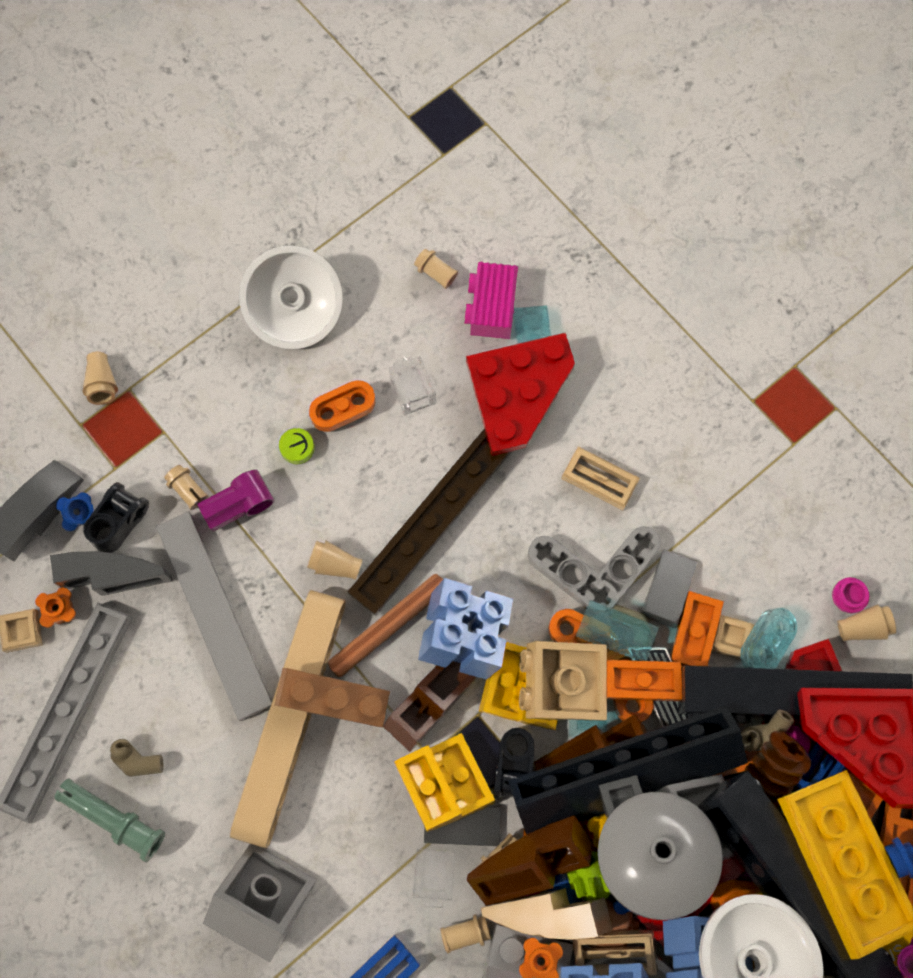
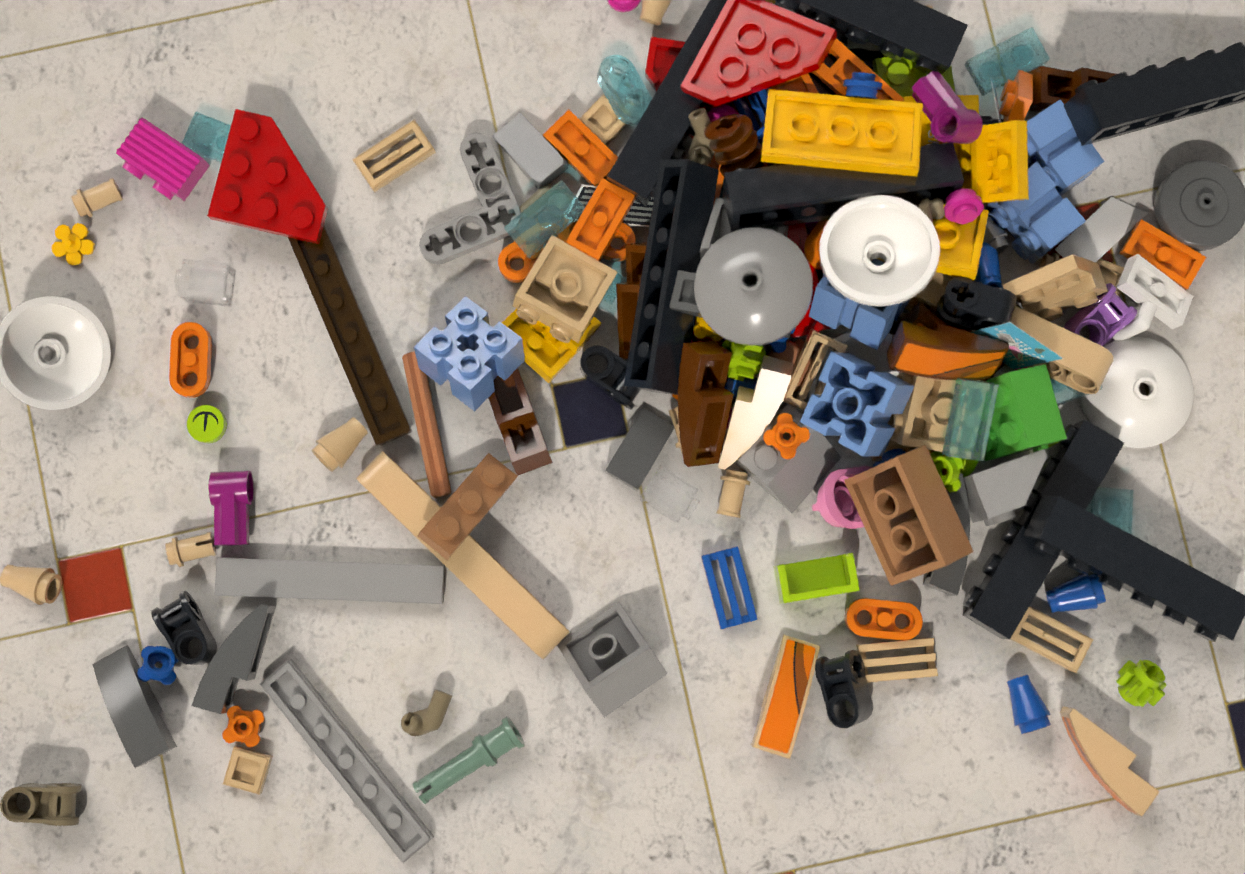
camera: 60 degrees left, 10 degrees up
(389, 270) = (72, 243): none -> yellow plant
(444, 782) = (595, 444): yellow slope -> none

